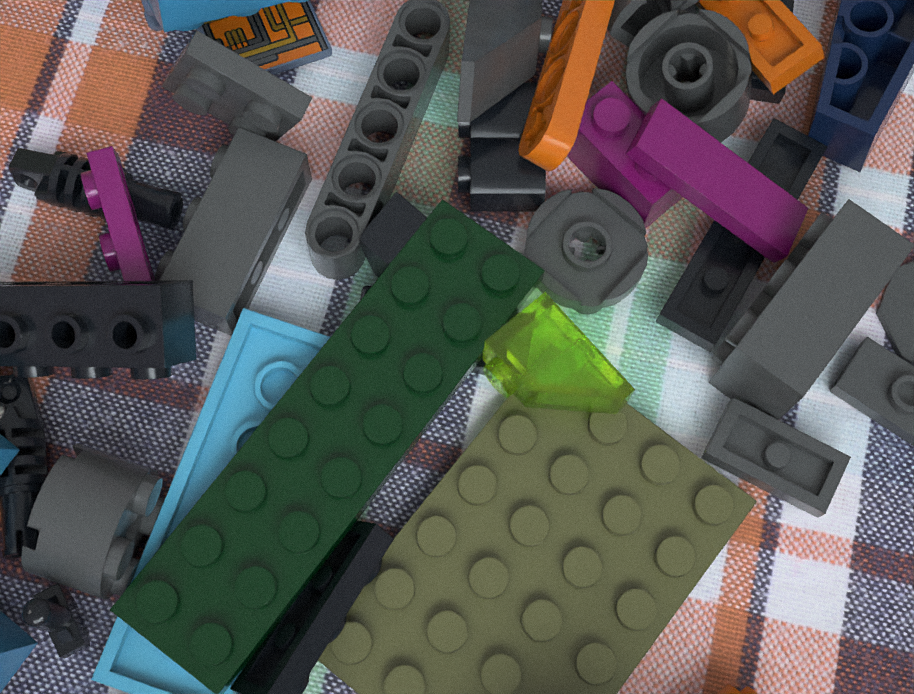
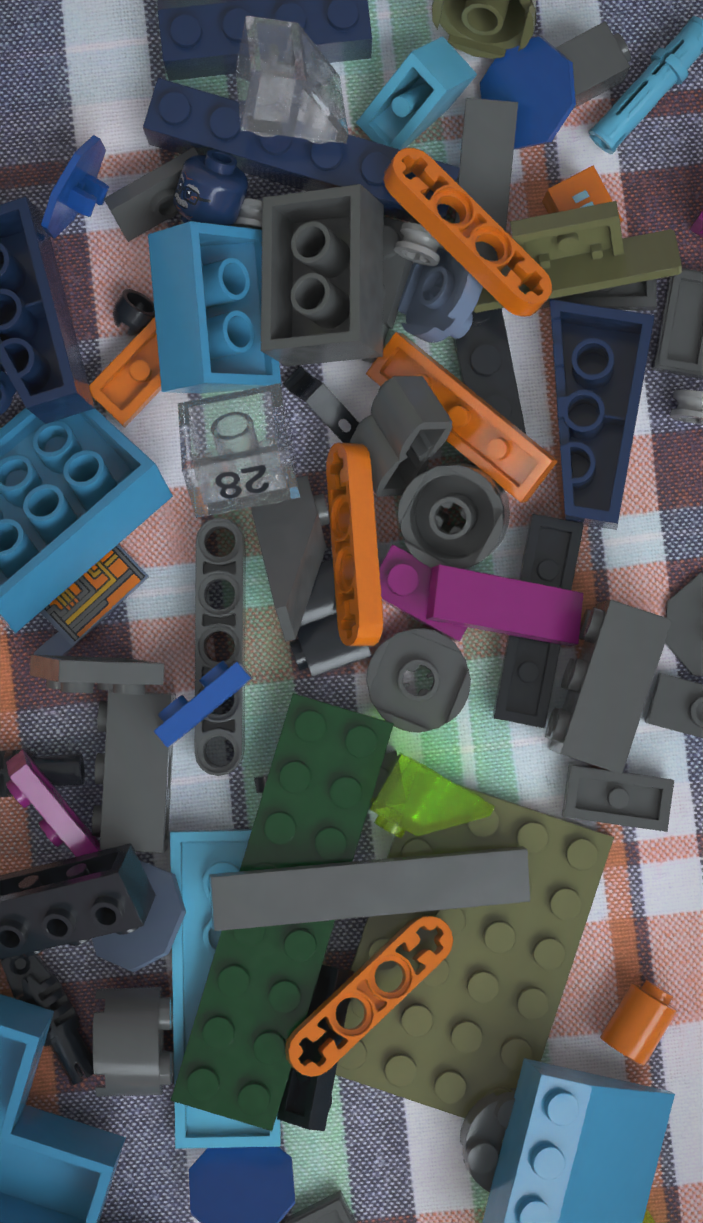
camera: 20 degrees left, 15 degrees up
(52, 613) = (134, 1119): black bar -> none
(167, 404) = (160, 929): none -> sand blue piece
(342, 161) = (183, 716): none -> blue plate
(390, 232) = (263, 731): black slope -> none
(399, 557) = (374, 1000): none -> orange beam
(449, 435) = (369, 888): none -> dark grey tile

